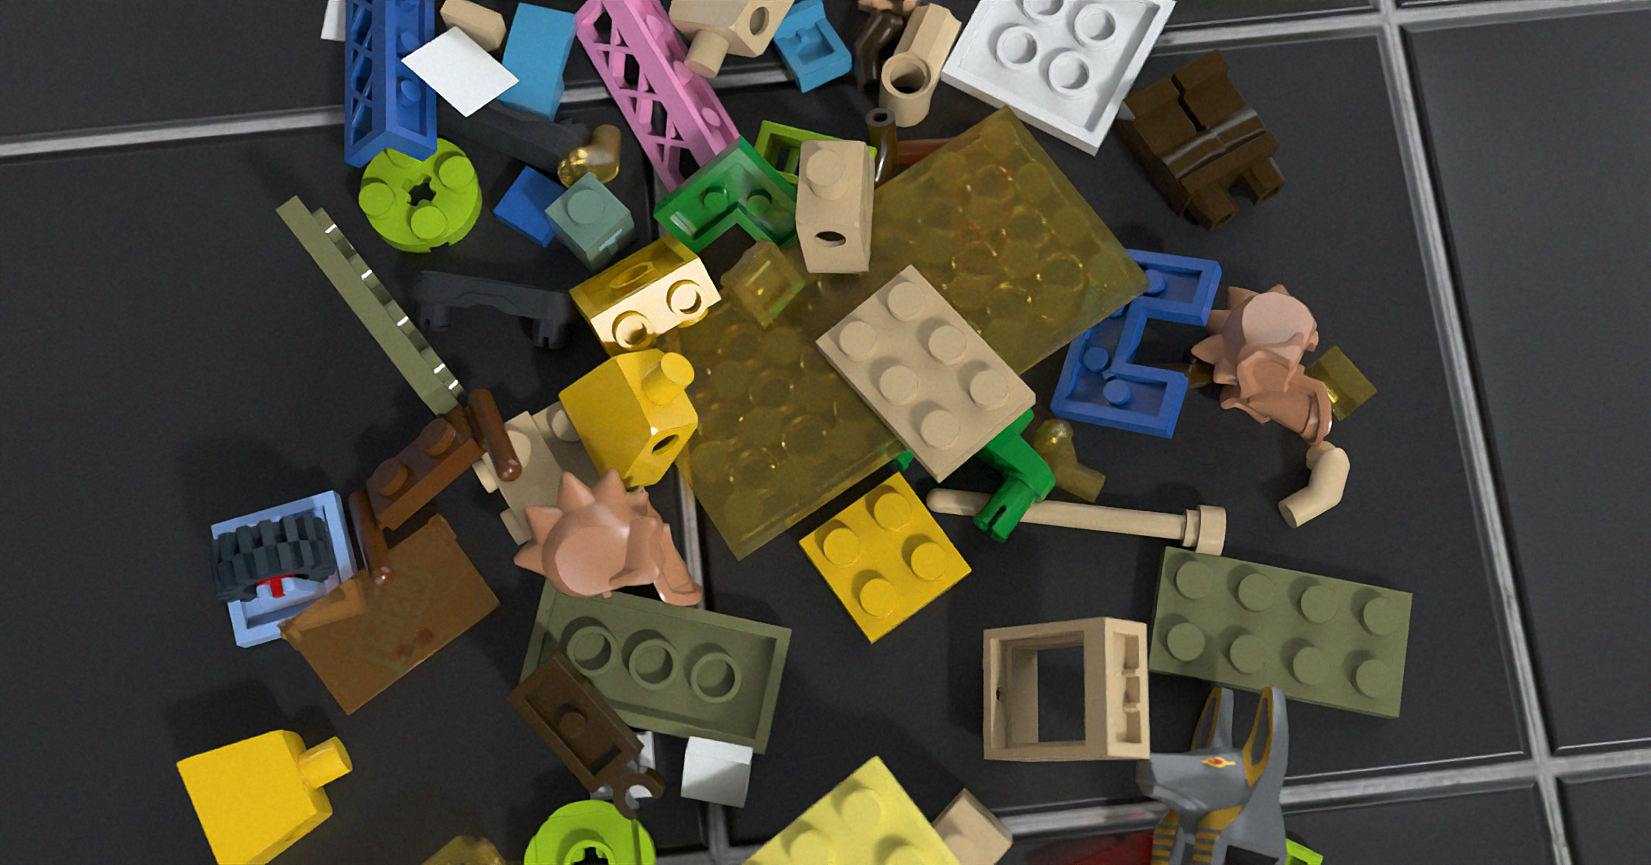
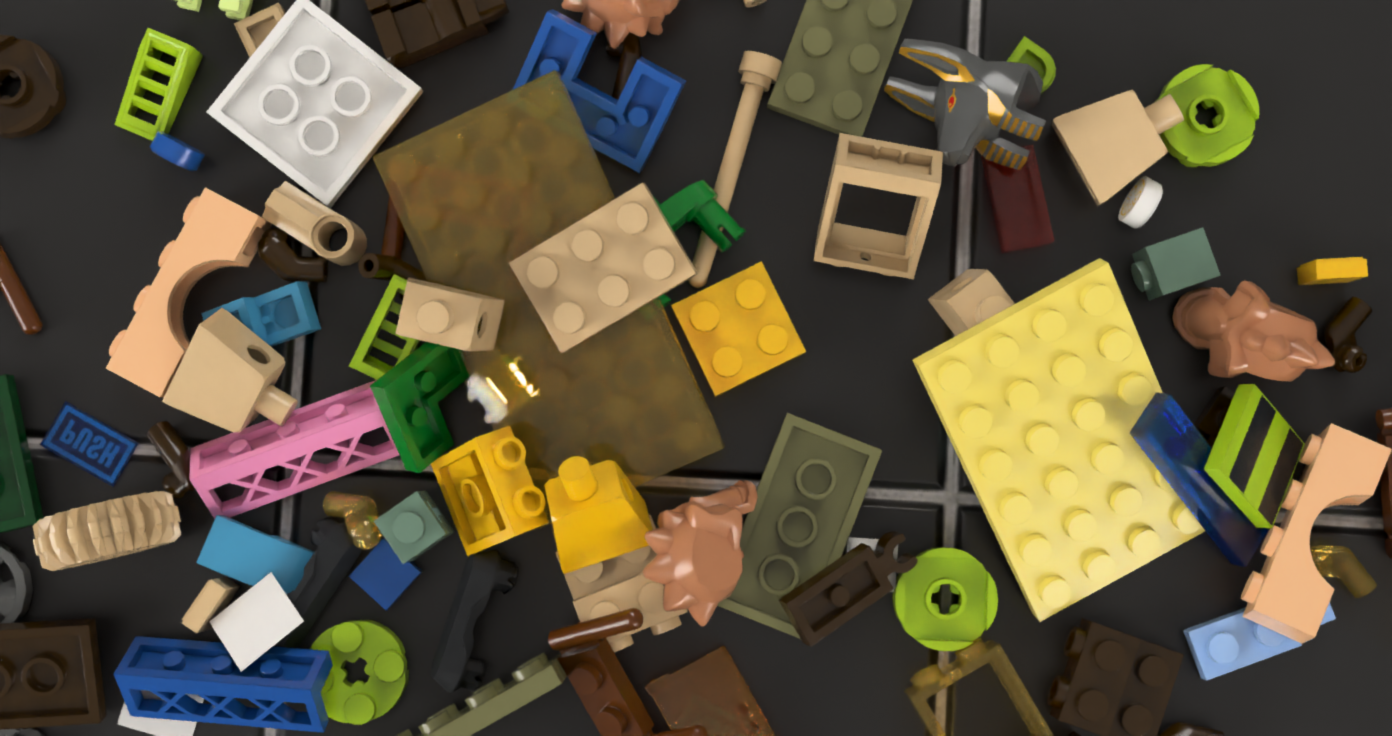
camera: 80 degrees left, 10 degrees up
(716, 771) = (888, 489): white tile -> none
(1056, 448) = (679, 174): clear yellow arm -> none

